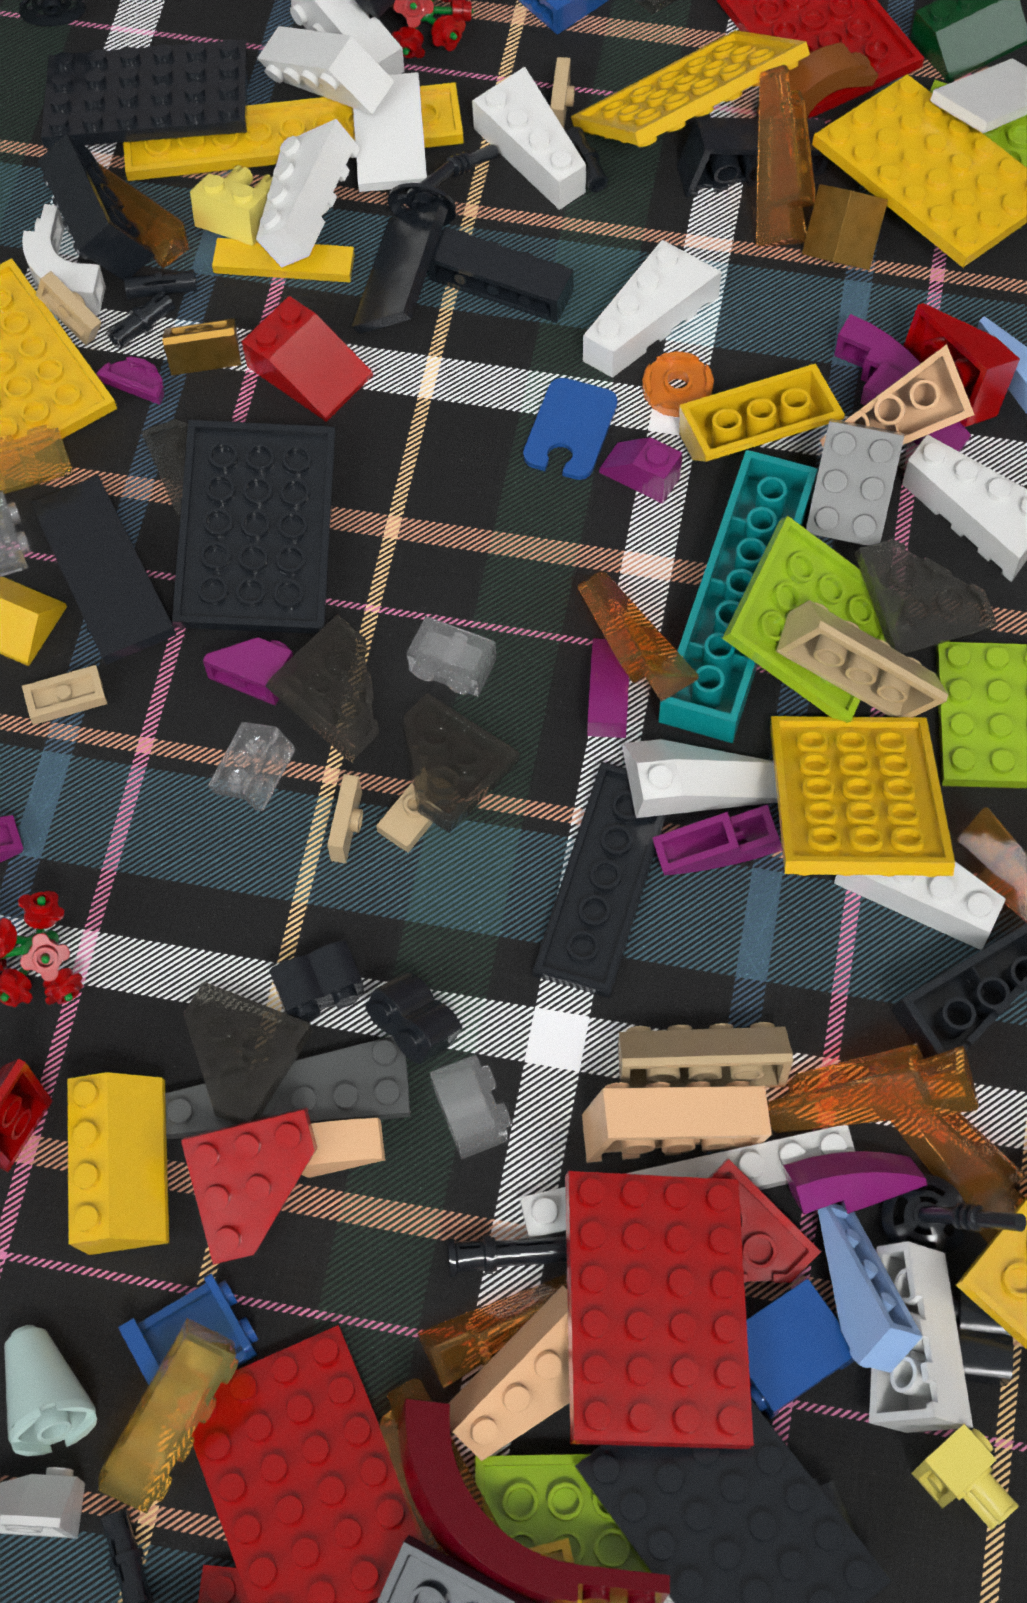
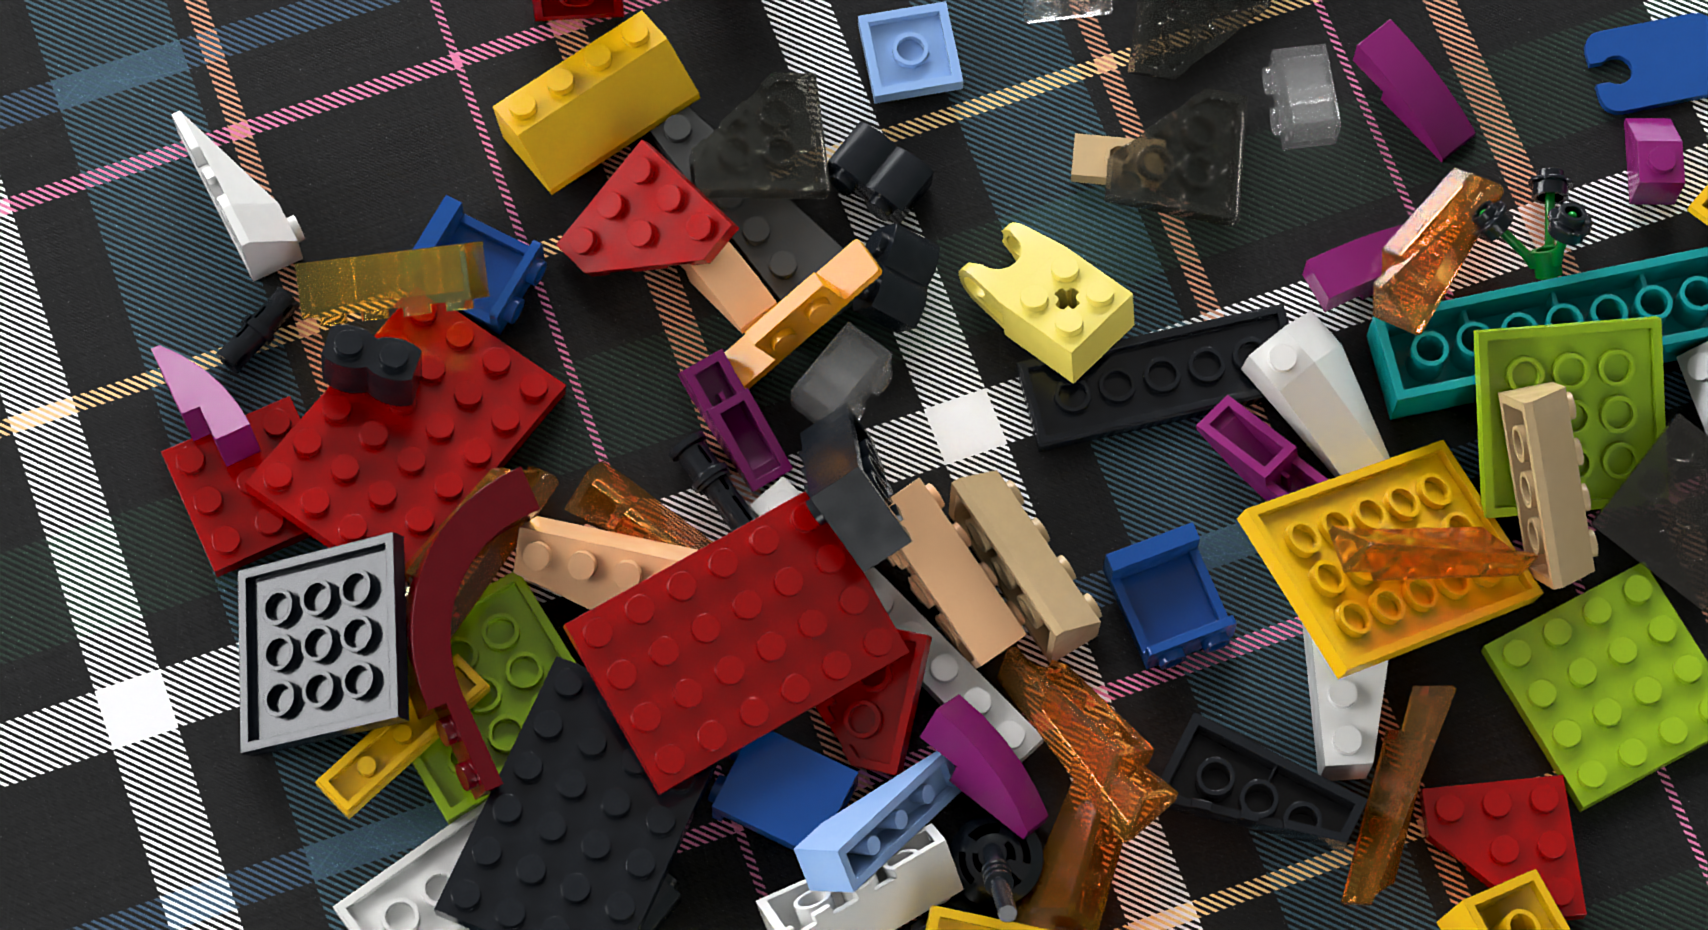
camera: 55 degrees right, 5 degrees up
(42, 1395) = (351, 170): light aqua cone -> none
(224, 1482) = (362, 363): none -> black brick
(232, 904) = (910, 52): none -> light blue plate
(346, 819) = (1062, 100): tan plate -> none
(402, 1104) = (802, 313): none -> light orange bracket
(450, 1207) = (735, 420): none -> magenta slope
(494, 583) = (1413, 90): none -> magenta slope
(502, 917) = (1052, 302): none -> light yellow brick
(583, 1144) = (850, 488): none -> black wedge
(673, 538) = (1565, 224): none -> black plant
(787, 972) = (1168, 598): none -> blue panel
(872, 767) = (1427, 553): none -> clear orange wedge

